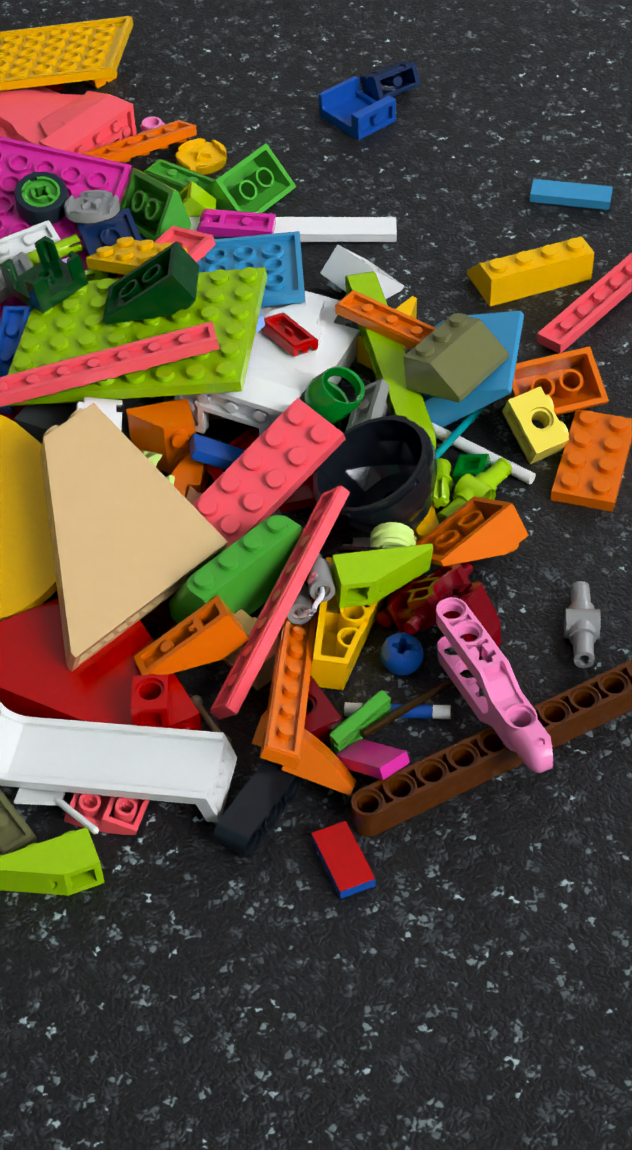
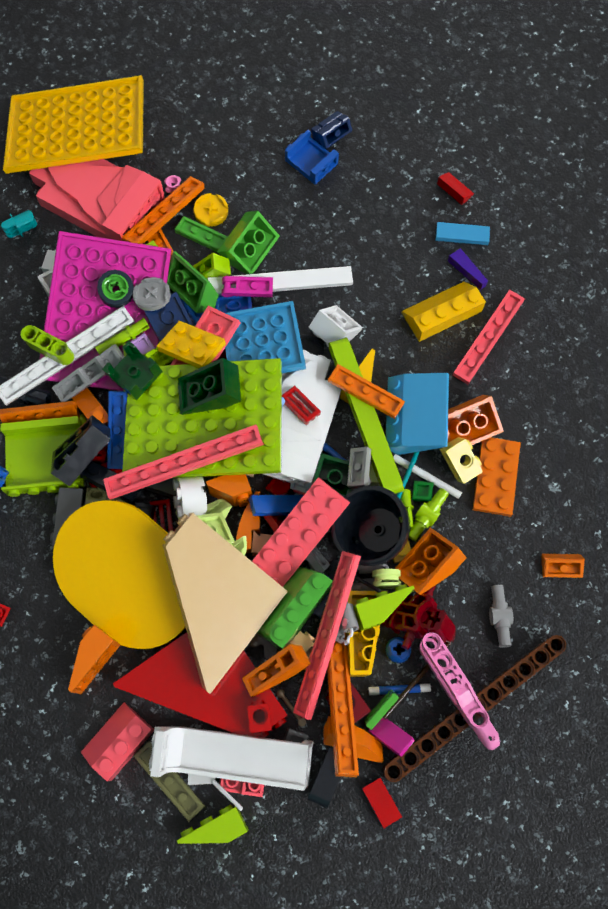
camera: 10 degrees left, 25 degrees up
(329, 399) = (334, 465): green helmet -> none
(453, 358) = (411, 427): olive slope -> none
(563, 148) = (454, 188): none -> red slope
(570, 226) = (467, 268): none -> dark purple piece

